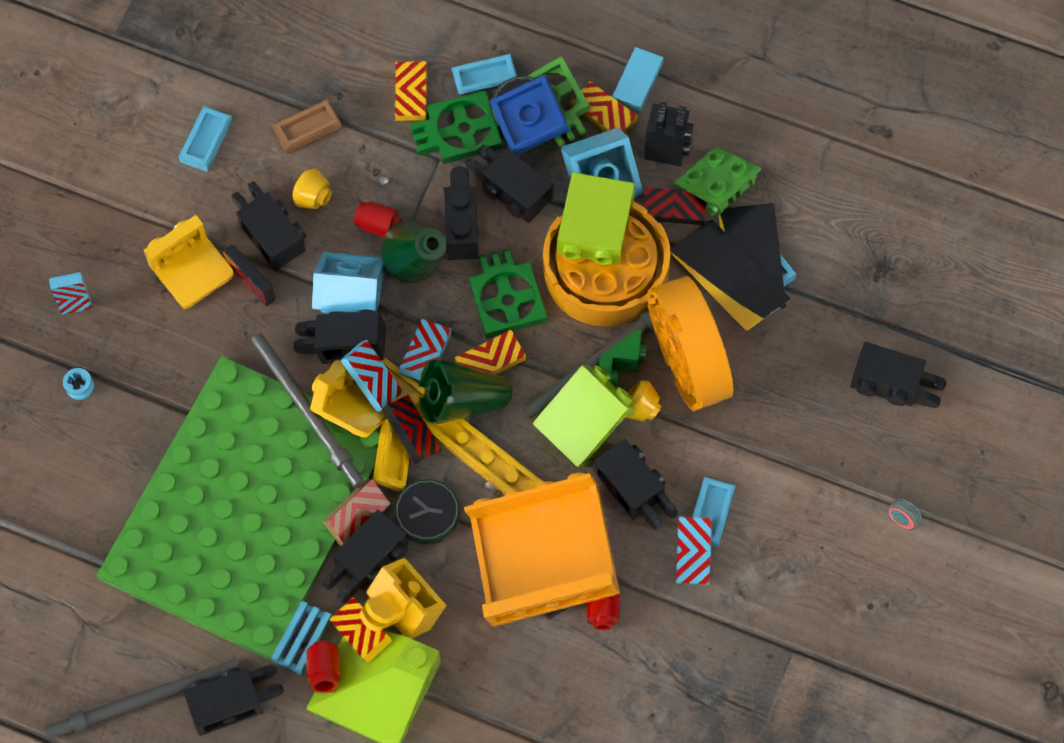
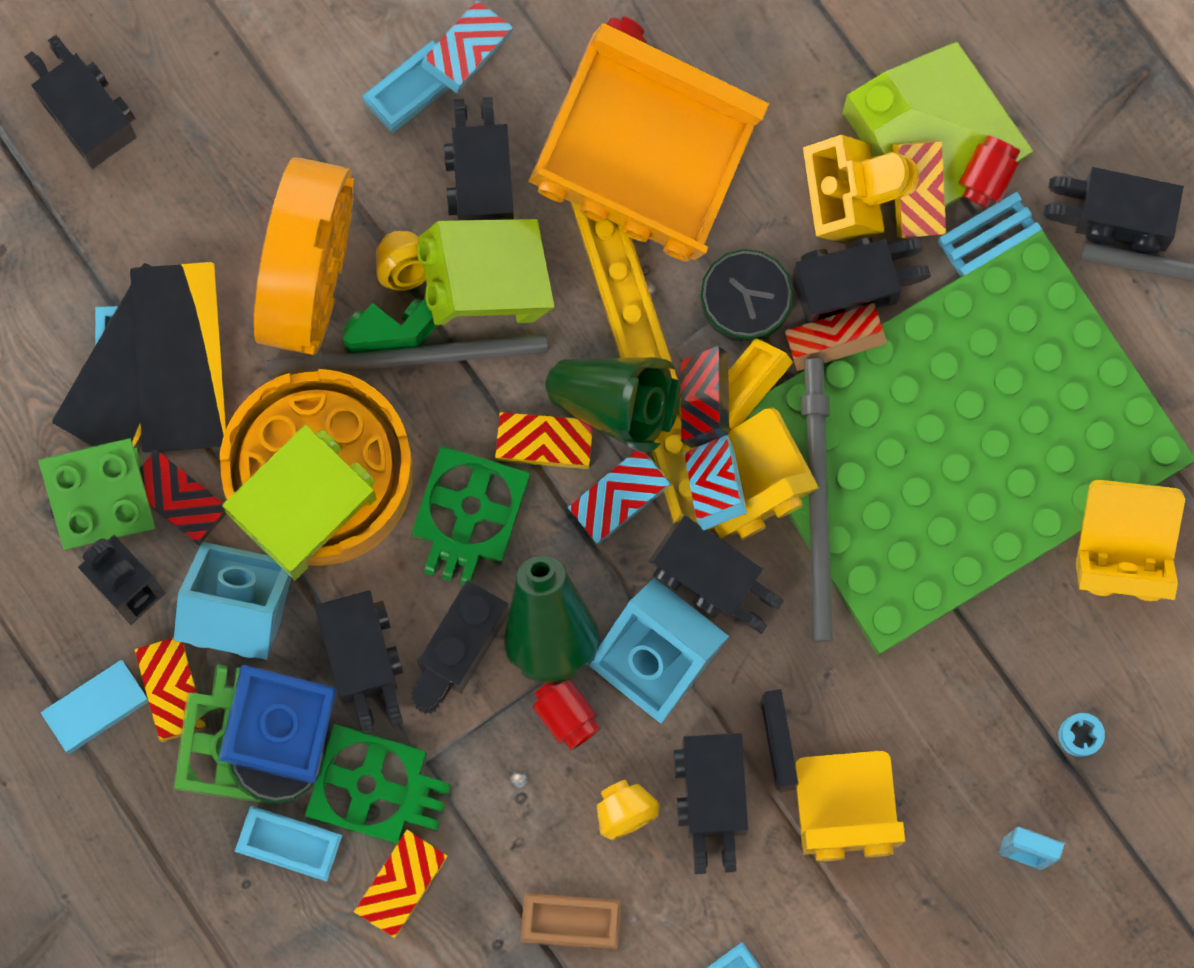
camera: 150 degrees left, 10 degrees up
(107, 492) = (1130, 540): none -> yellow bracket

